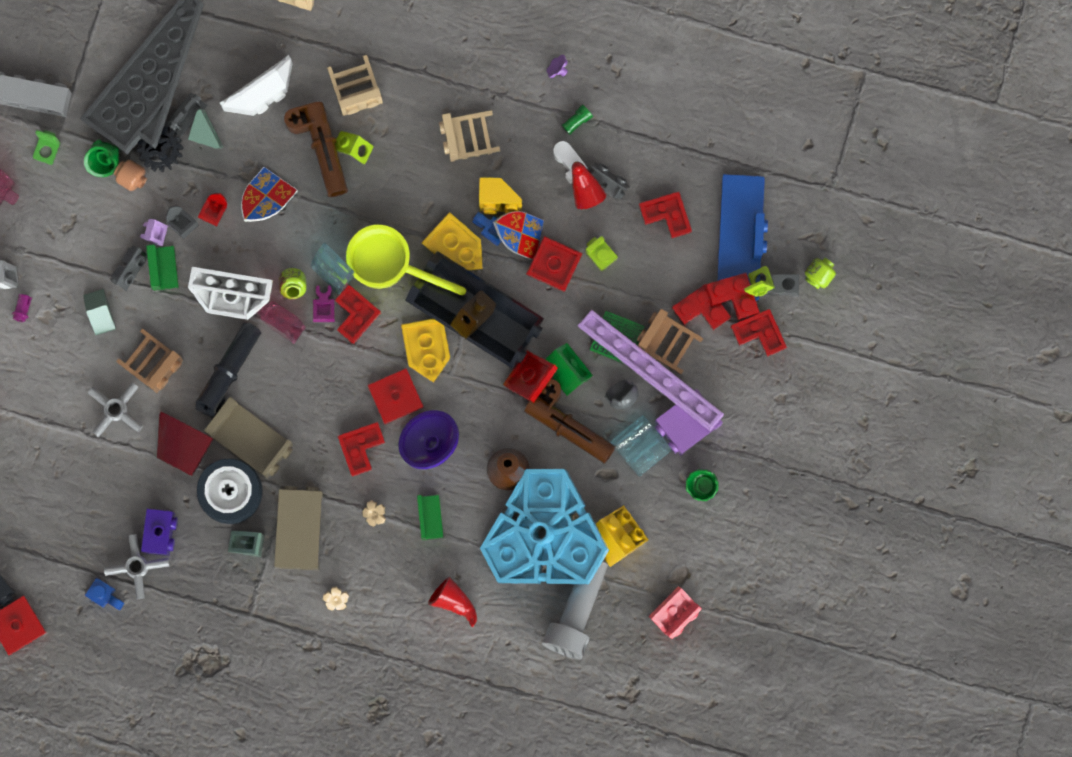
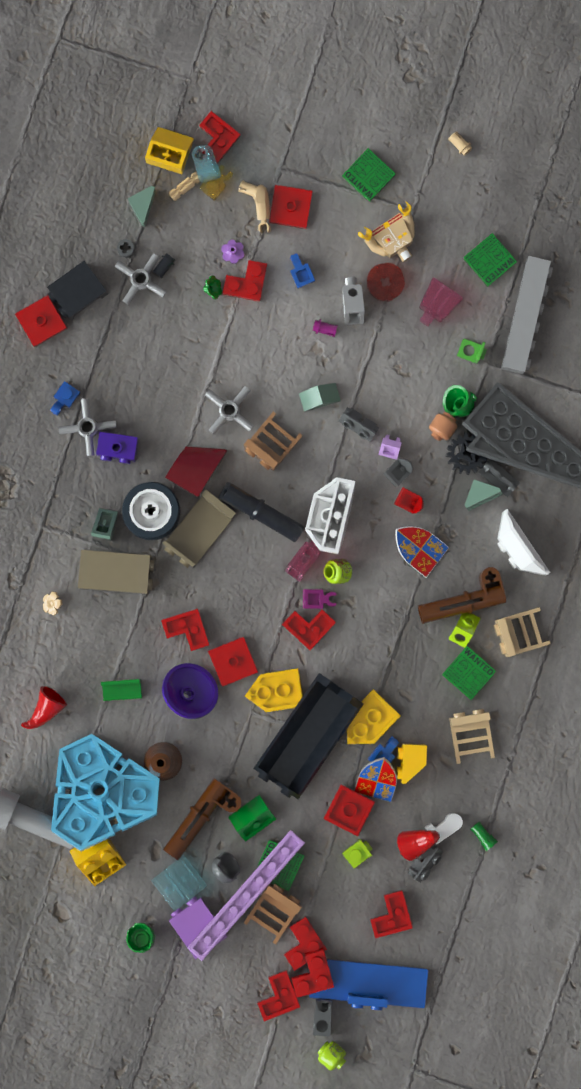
camera: 90 degrees right, 5 degrees up
(162, 267) = (358, 454): green panel -> none
(332, 268) = (349, 607): clear light blue slope -> none
(374, 513) = (127, 639): tan plant -> none
(382, 257) = (358, 652): neon yellow piece -> none
(400, 141) = (468, 672): none -> green tile
(477, 310) = (303, 737): dark brown torso -> none
(530, 376) = (244, 785): red plate -> none
(557, 67) = (534, 819): medium lavender plant -> none
(675, 613) = (25, 908): coral bracket -> none
(761, 287) = (316, 999): lime bracket -> none

